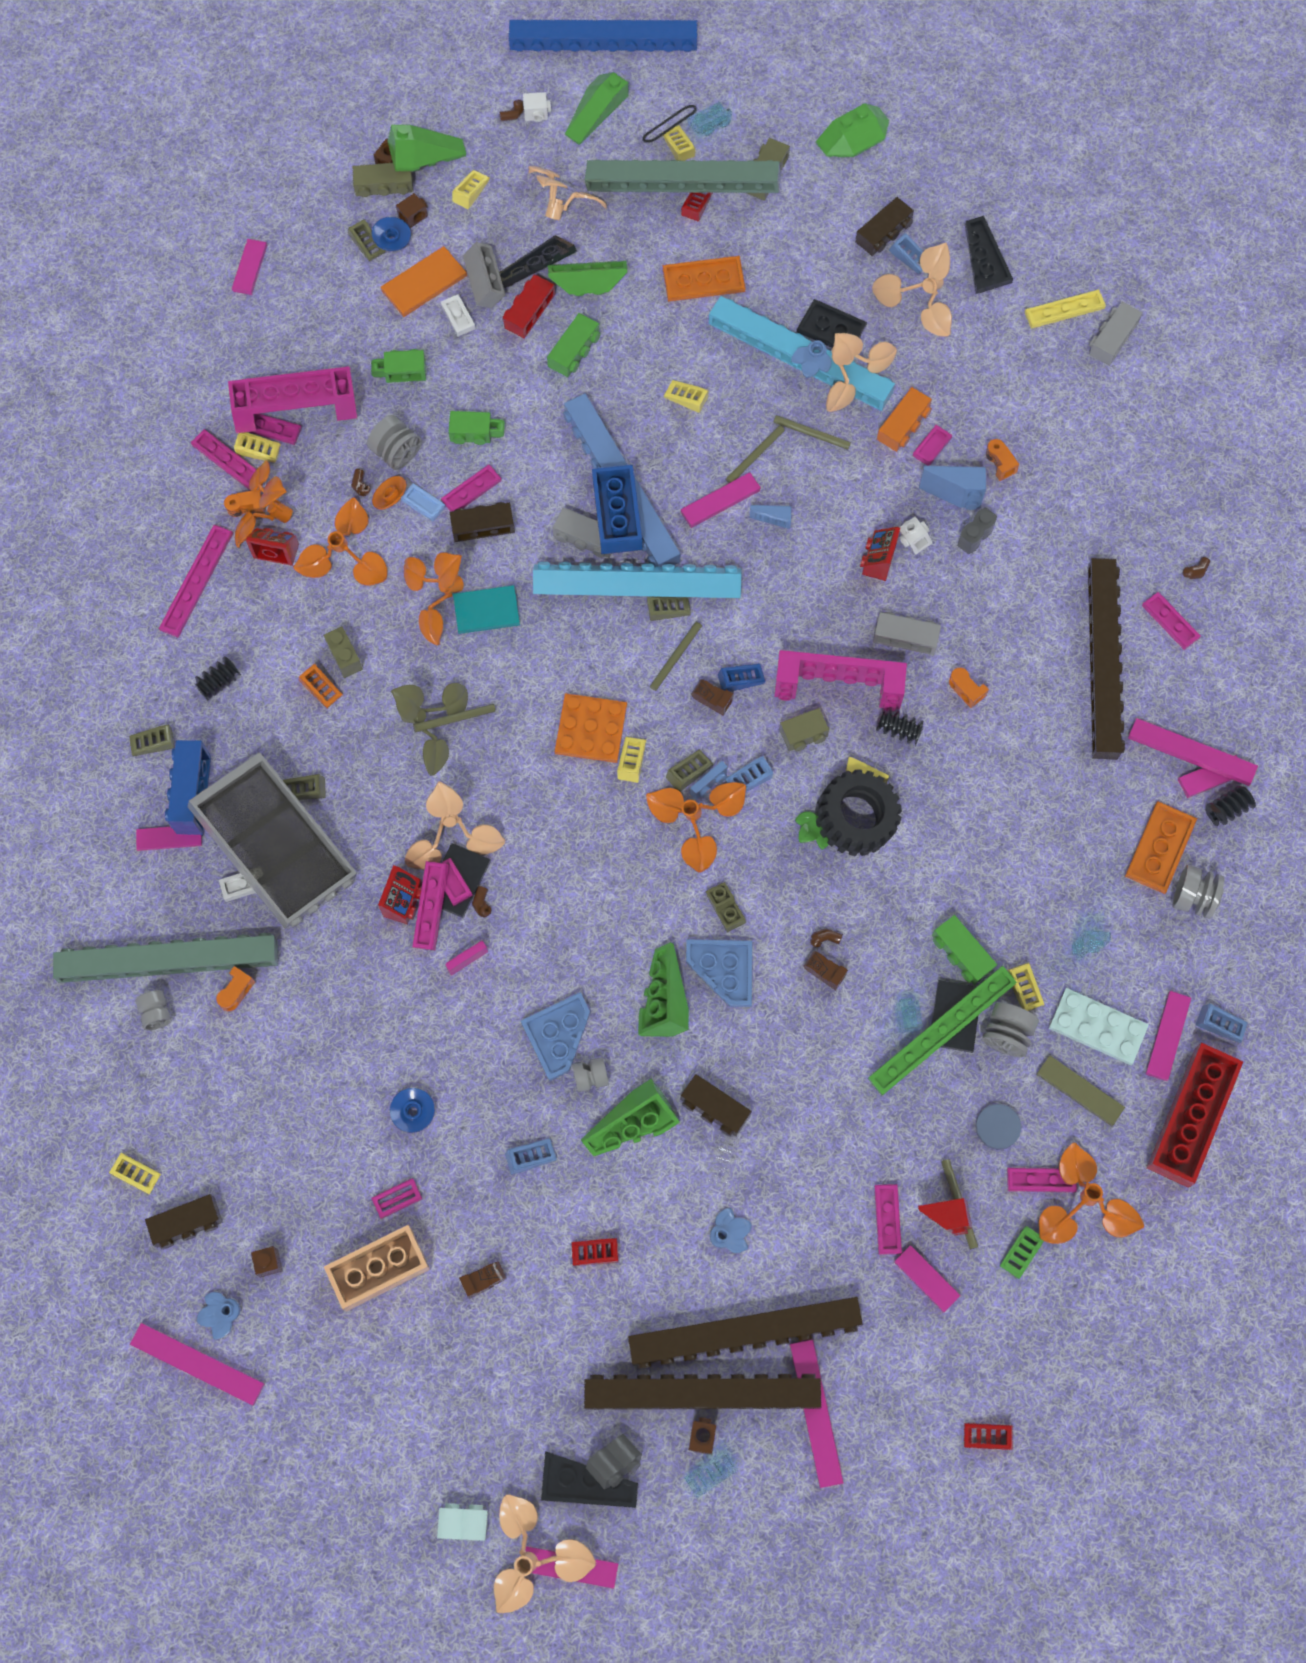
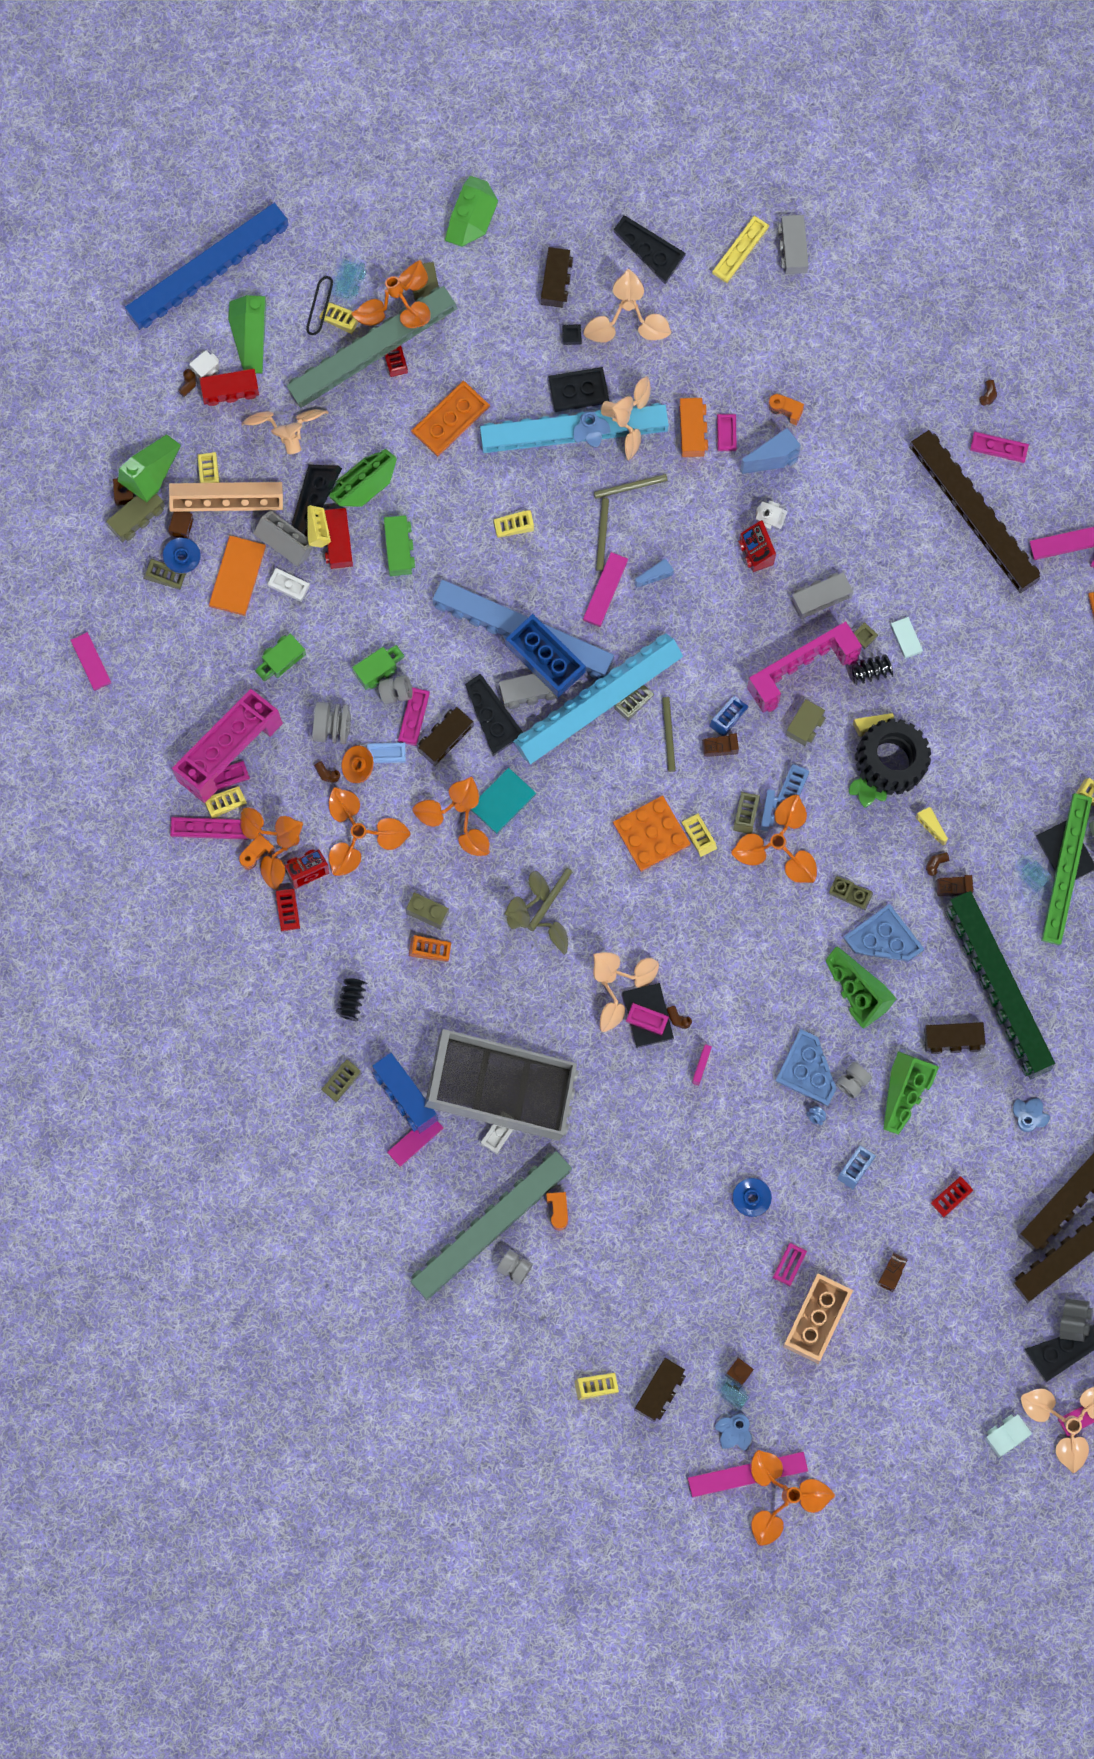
camera: 40 degrees left, 5 degrees up
(195, 581) = (268, 938): dark pink tile -> none
(237, 1435) = (811, 1494): none -> orange plant
(241, 567) = (286, 893): none -> red slope
(245, 1279) = (734, 1394): none -> clear light blue brick
(320, 789) = (488, 1017): olive slope -> none
(400, 896) = (621, 1057): red slope -> none
(430, 905) = (647, 1047): dark pink tile -> none
(464, 211) = (225, 496): none -> light nougat brick
(471, 454) = (399, 689): none -> light grey wheel
(508, 290) = (317, 533): none -> light yellow slope
(531, 1081) = (816, 1115): none -> medium blue plate
(536, 533) = (494, 718): none -> black wing
(542, 134) = (229, 387): none -> red brick
(735, 134) = (417, 315): none -> orange plant
(793, 1094) = (1000, 985): none -> dark green brick
(847, 896) = (932, 825): none -> light yellow slope
(861, 280) = (572, 334): none -> black plate
(901, 253) = (577, 290): medium blue slope -> none
(918, 694) = (865, 635): none -> olive plate
(956, 723) = (906, 637): none -> light aqua tile
(963, 950) = (1038, 801): bright green brick -> none
(966, 687) = (894, 606): orange leg -> none
(977, 530) = (812, 478): dark grey brick -> none

